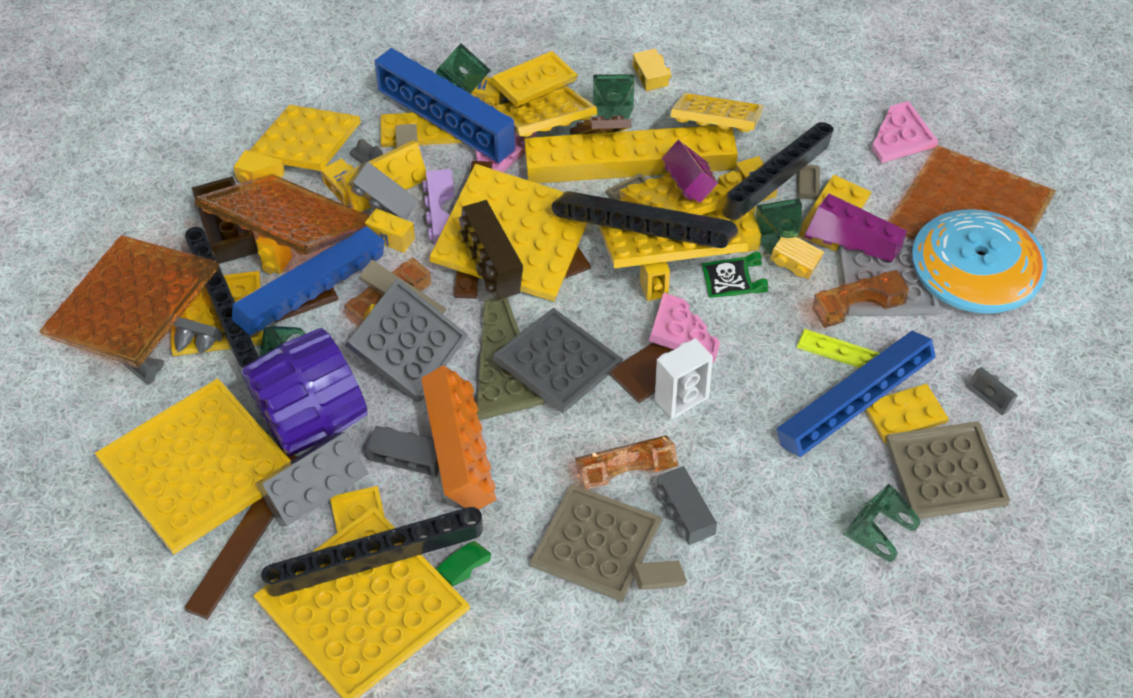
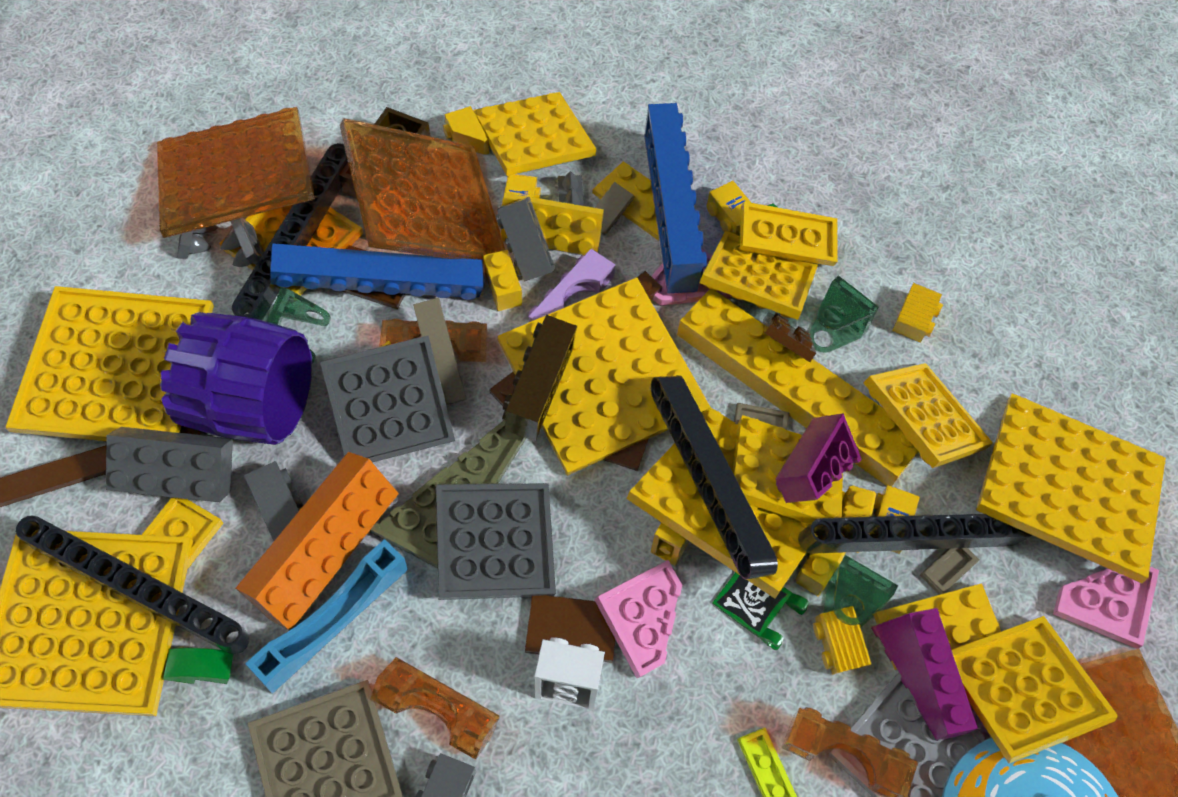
camera: 40 degrees right, 10 degrees up
(463, 58) = (707, 172): clear green hose -> none
(510, 473) = (292, 650): none -> dark azure arch
(826, 91) = (1074, 487): none -> yellow plate
(911, 197) = (1030, 689): none -> yellow plate

